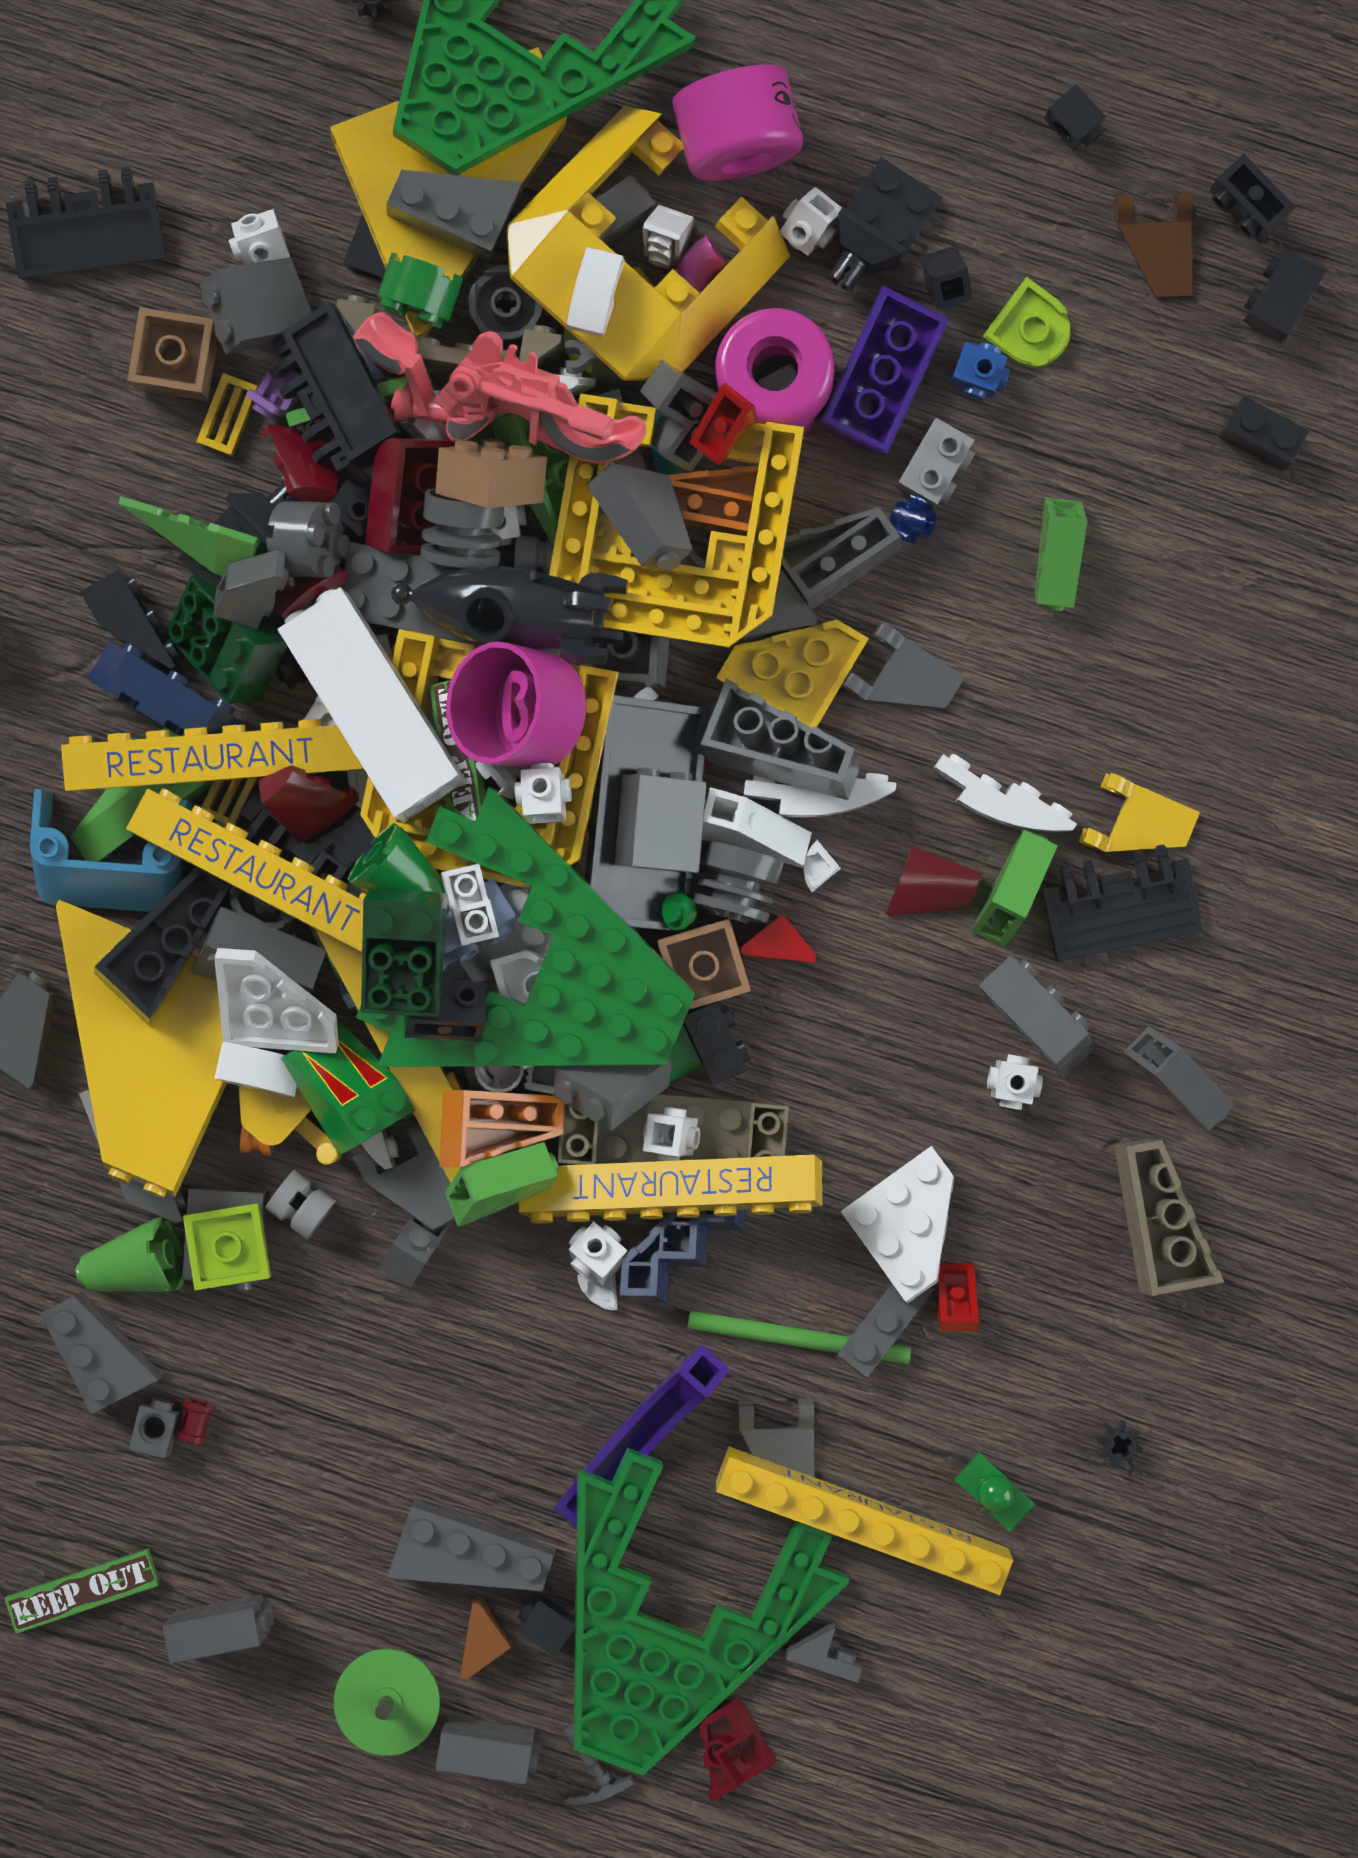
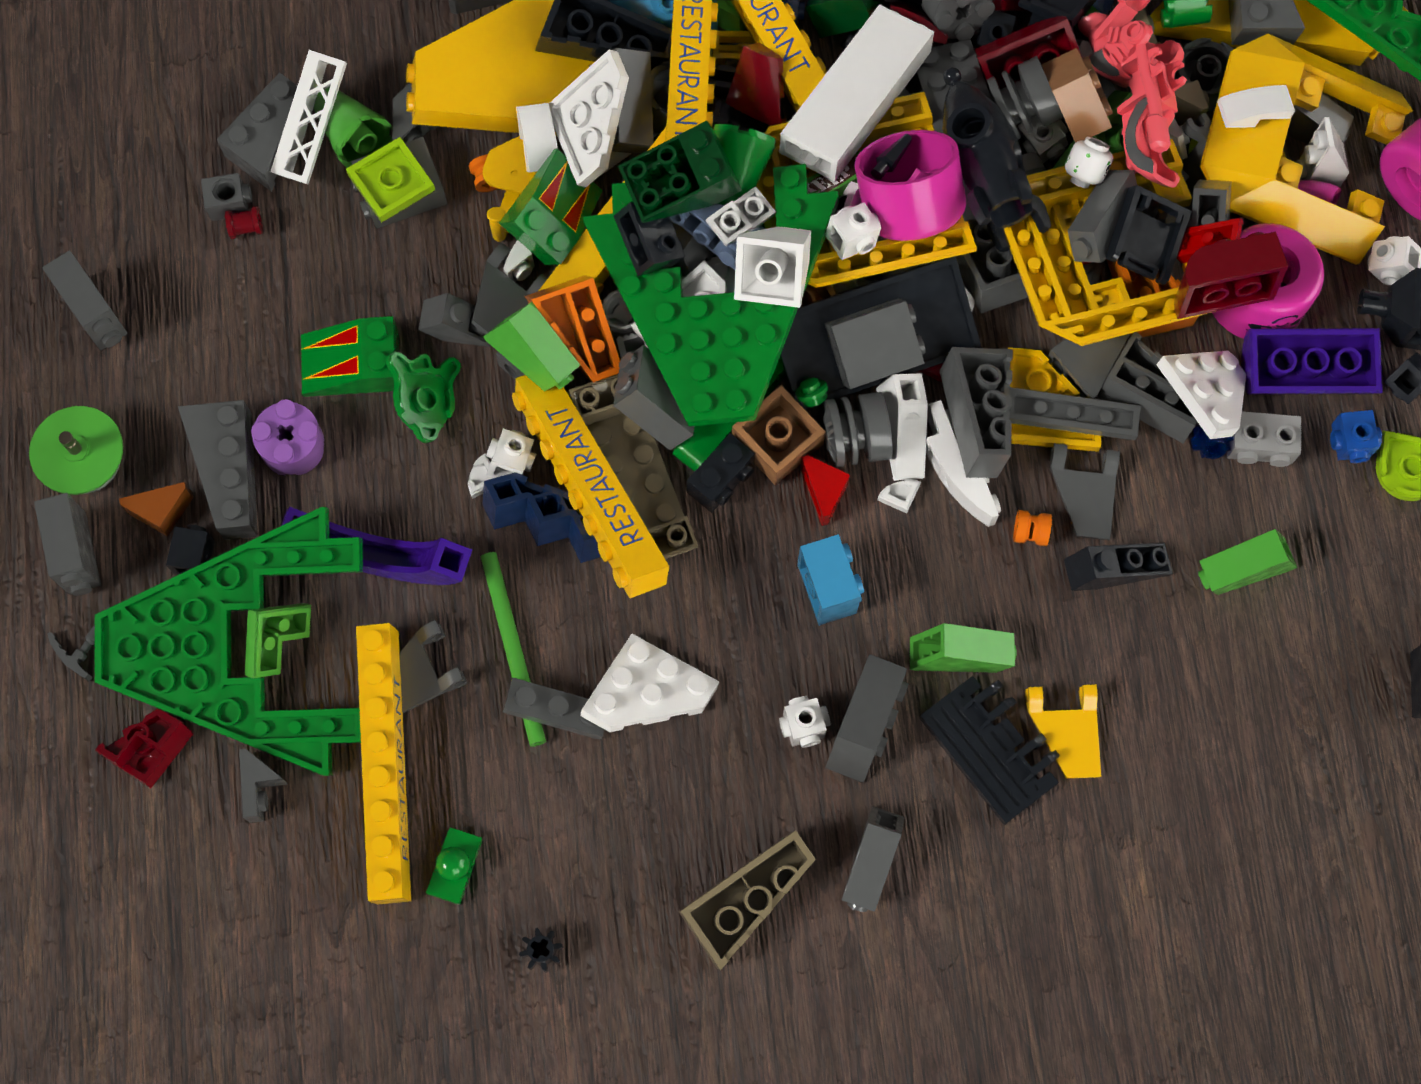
camera: 65 degrees right, 15 degrees down
(82, 1590) = (76, 201): tile -> none
(103, 1311) = (301, 114): none -> white fence
(311, 1212) = (446, 228): light grey wheel -> none
(406, 1372) = (349, 357): none -> green slope
(459, 1493) = (285, 421): none -> medium lavender brick
(474, 713) = (890, 157): none -> black bar
(485, 1312) = (423, 393): none -> green tile
(548, 900) = (772, 266): none -> white slope
(575, 503) = (1089, 162): none -> white head
(659, 1134) = (632, 463): white brick -> none
(675, 1580) = (266, 632): none -> bright green brick
(691, 489) = (1145, 242): none -> black container
(780, 429) = (1231, 275): none -> dark red brick
(824, 649) = (1074, 414): none -> dark grey plate
(867, 499) = (1209, 387): none -> white plate
(883, 988) = (829, 579): none -> dark azure brick
(926, 746) = (1039, 531): none -> orange wheel
(932, 885) = (931, 586): dark red slope -> none
(957, 1298) = (603, 757): red slope -> none
(999, 685) = (1116, 565): none -> black slope
(1015, 808) = (1024, 618): white slope -> none

